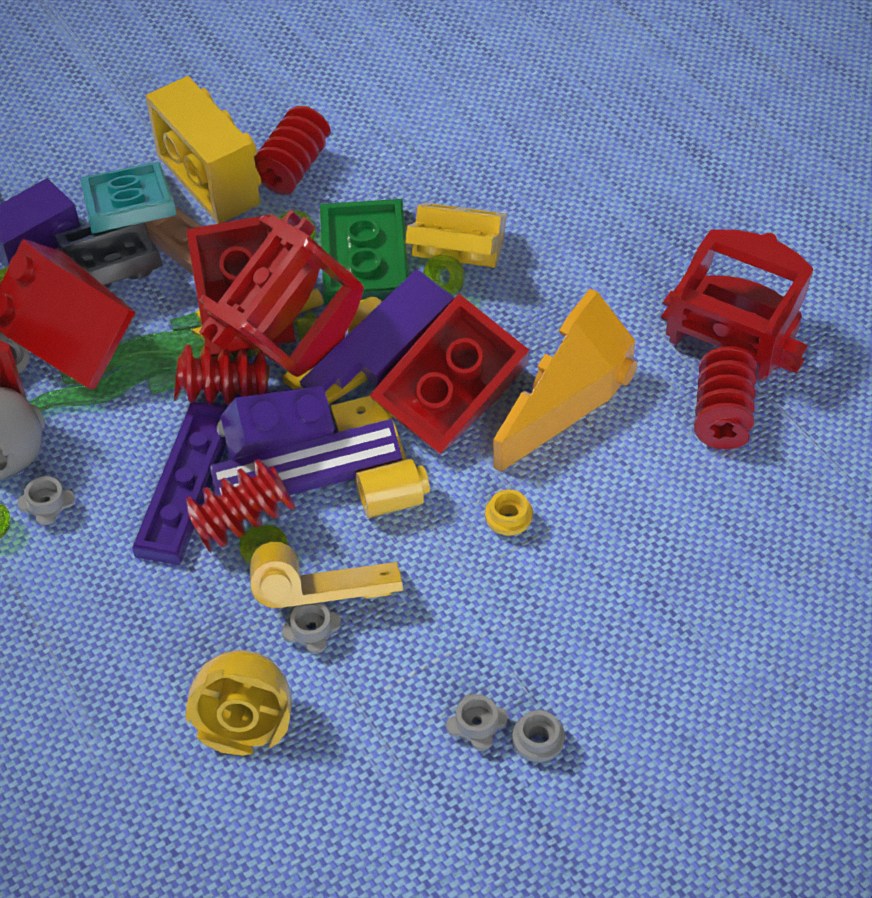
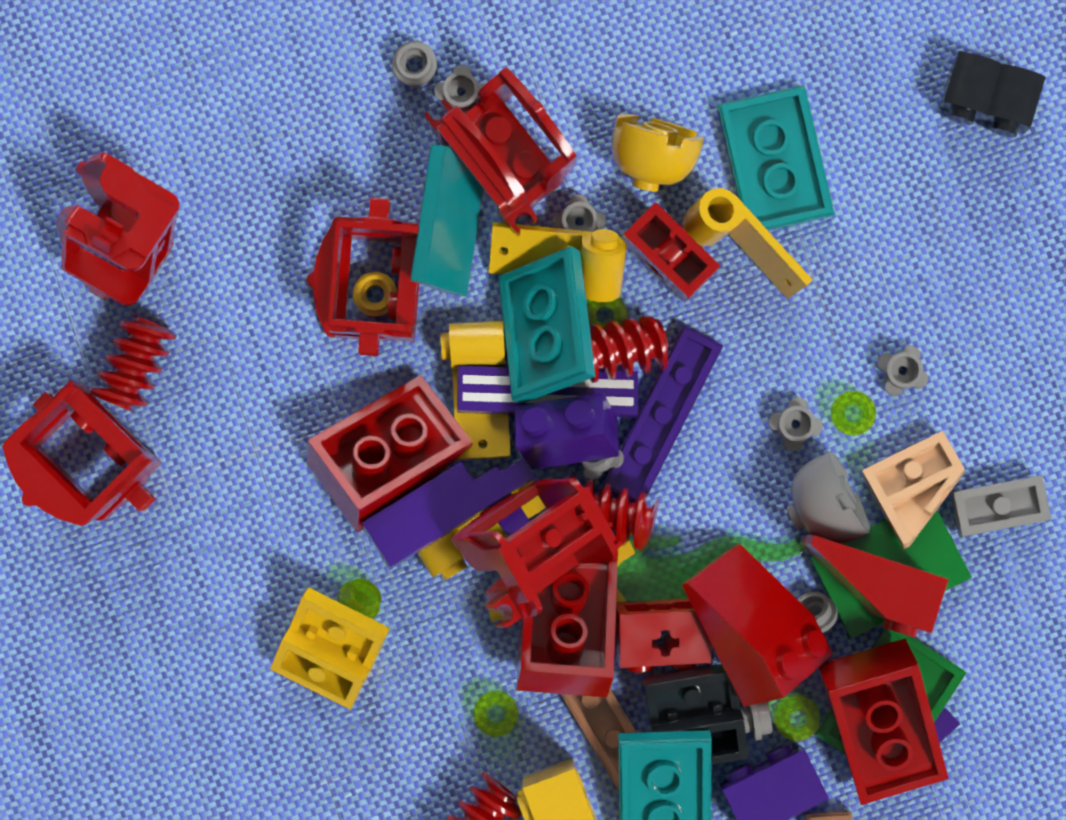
camera: 165 degrees left, 35 degrees up
(103, 740) = (776, 158): none -> teal tile
(151, 639) = (723, 213): none -> yellow door
(161, 300) = (641, 624): none -> red brick
(202, 601) = (670, 252): none -> red brick
(319, 500) = (546, 325): none -> teal tile
(367, 242) = (429, 669): green tile -> none
(395, 668) = (502, 151): none -> red animal
(449, 572) = (447, 224): none -> teal tile
(553, 491) = (332, 277): none -> red animal
(572, 383) = (260, 427): light orange wedge -> none
(780, 479) = (129, 230): none -> red animal

